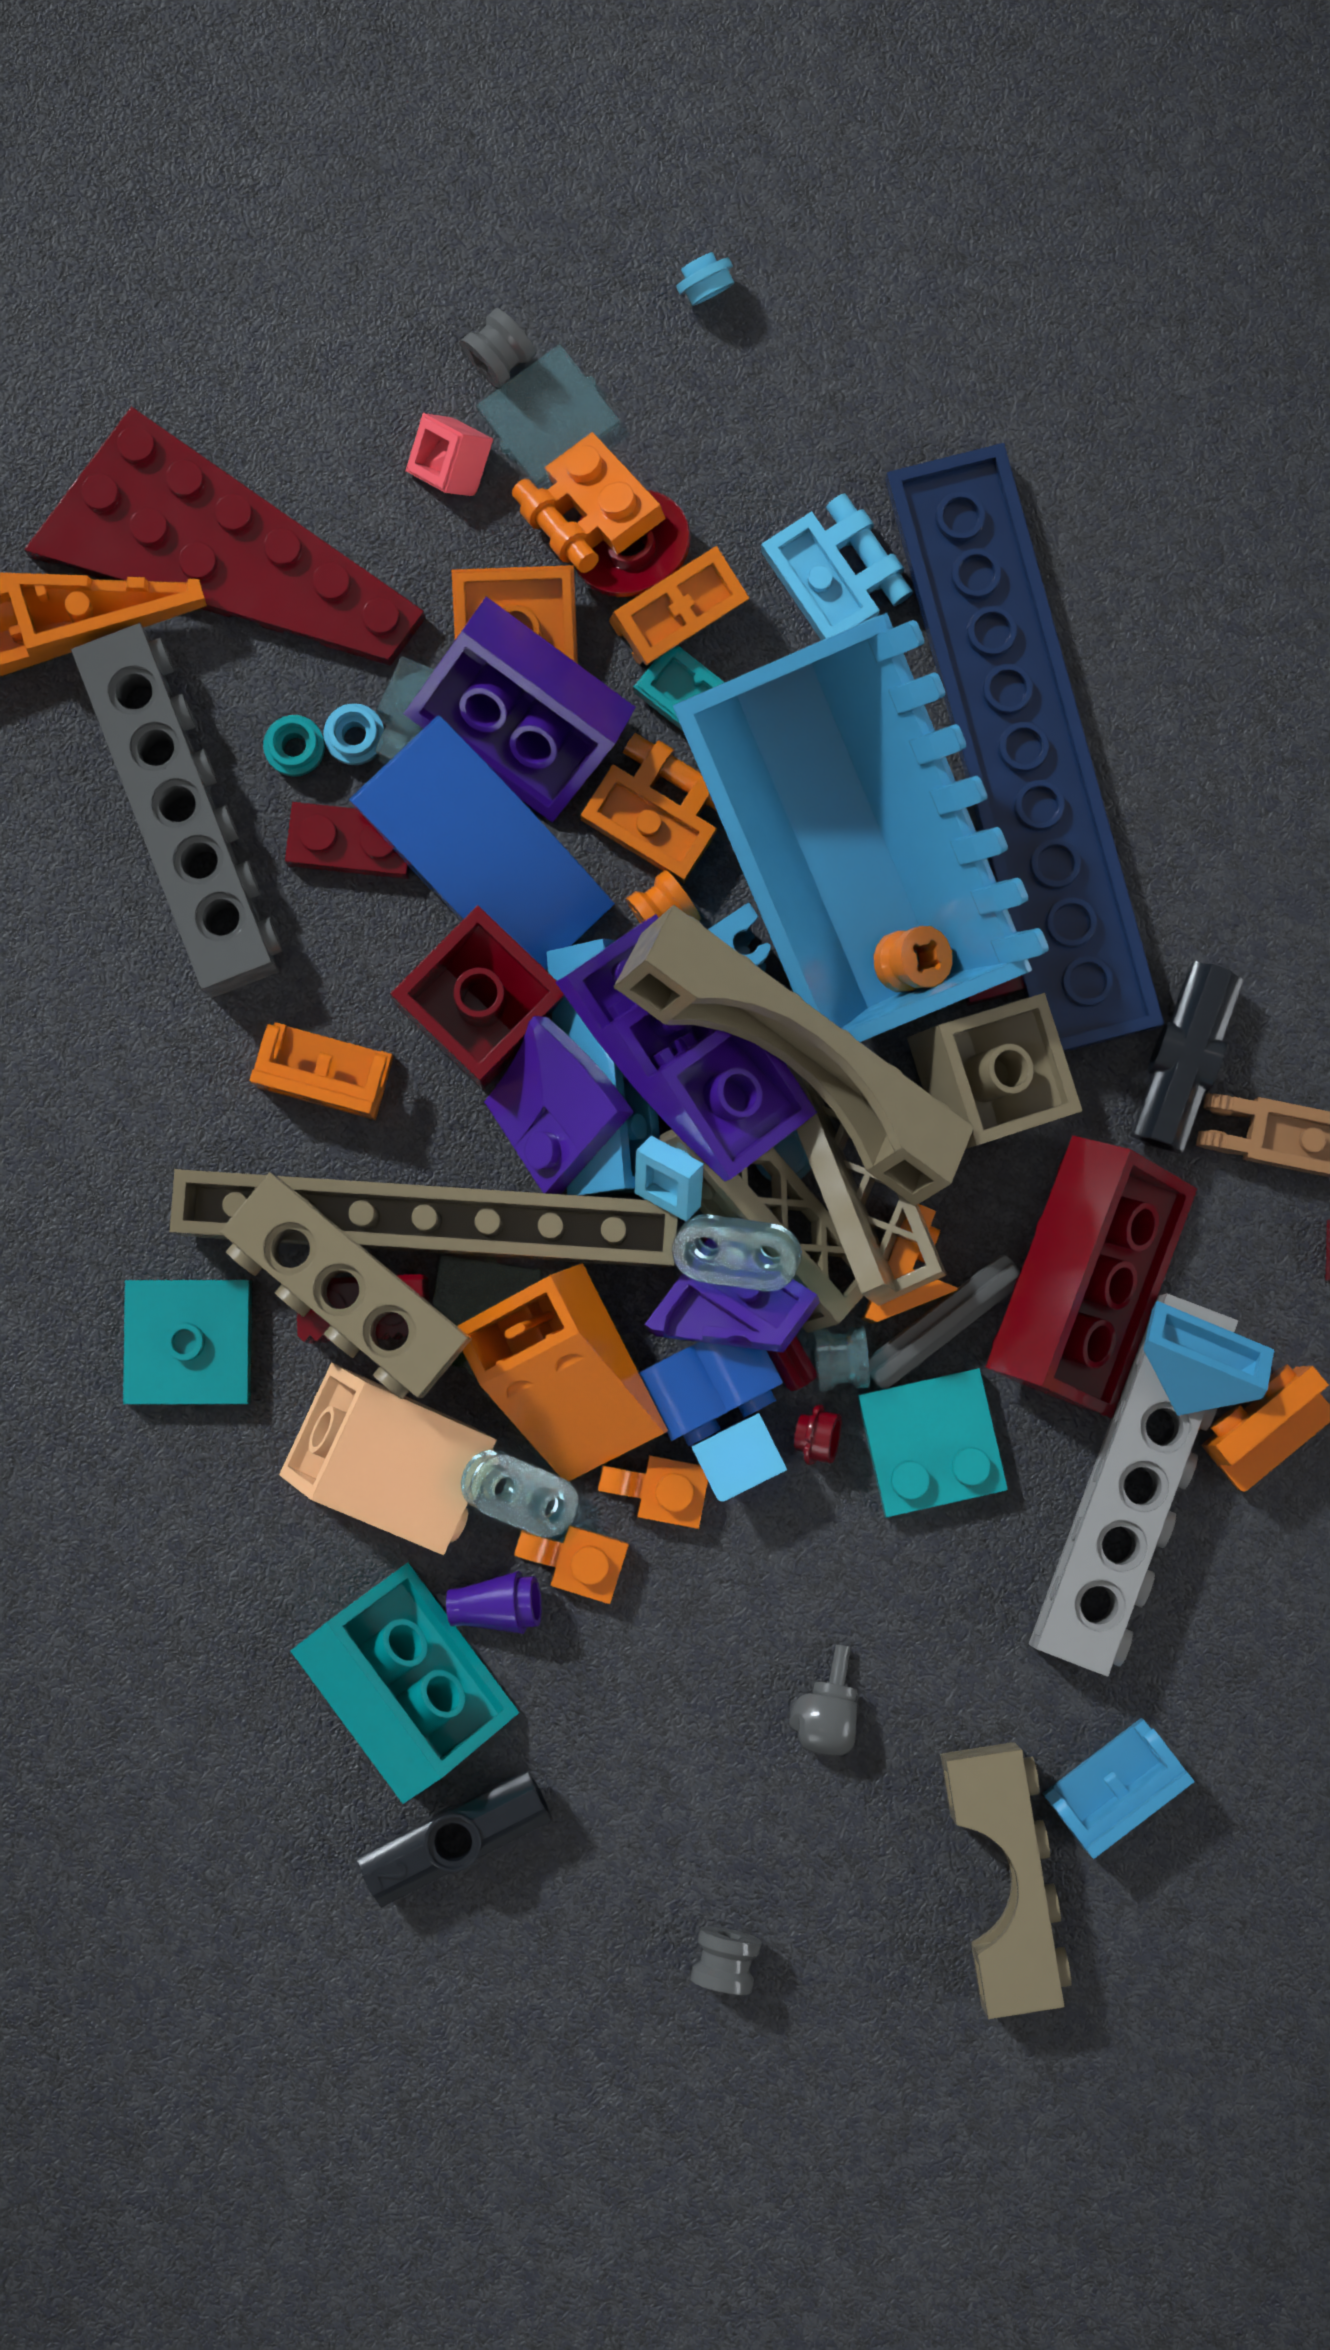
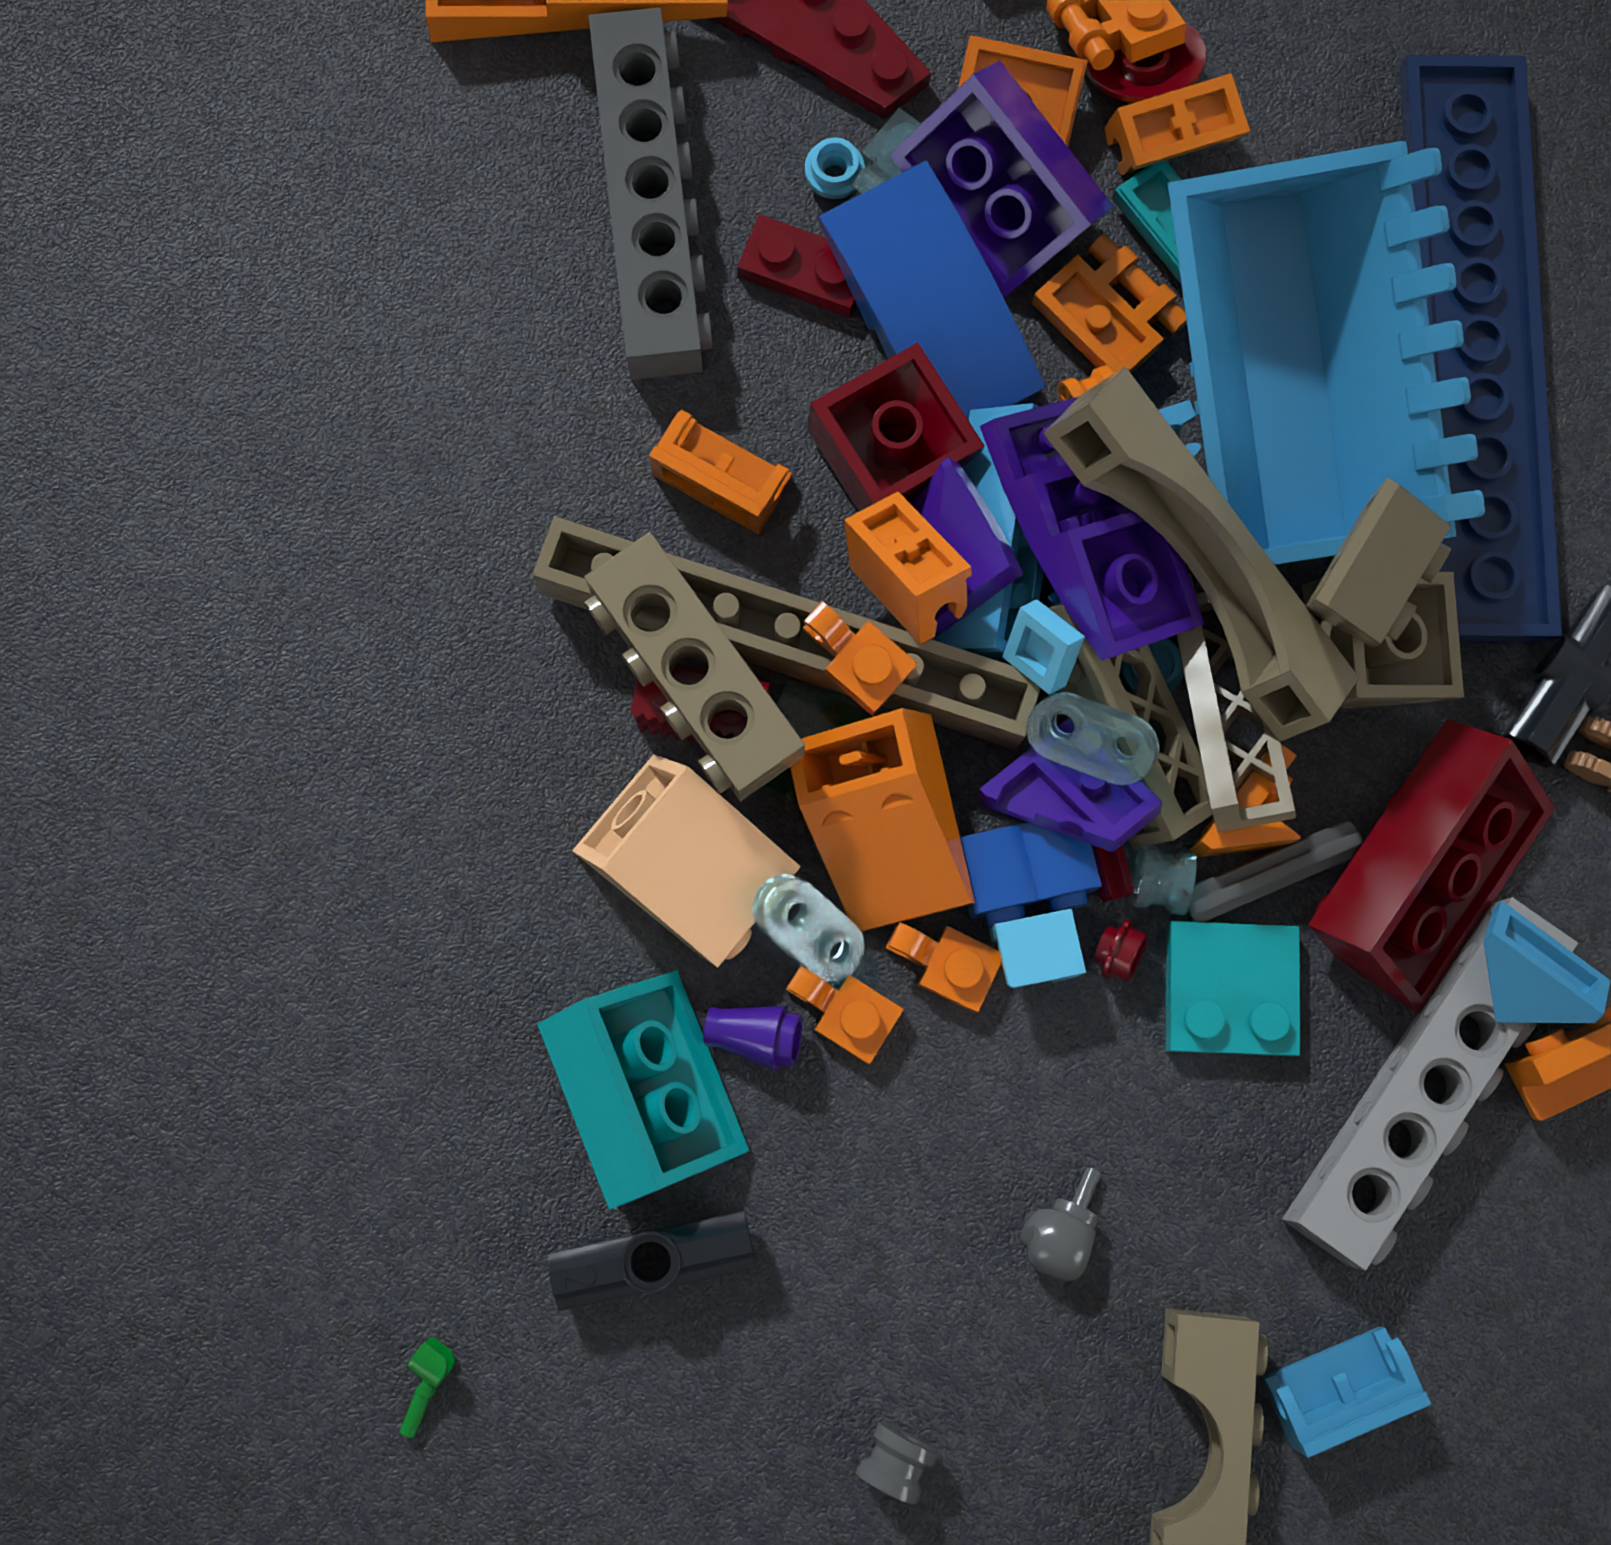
camera: 10 degrees right, 5 degrees down
(187, 1342) = (517, 697): teal plate -> none
(278, 1985) = (432, 1365): none -> green hand
(286, 729) = (769, 149): teal plate -> none
(506, 1236) = (864, 664): none -> orange plate
(521, 1129) = (906, 564): none -> orange hinge
(821, 579) = (1313, 116): medium azure plate -> none
(898, 963) = (1327, 506): orange wheel -> none
(961, 1028) = (1380, 565): none -> dark tan slope

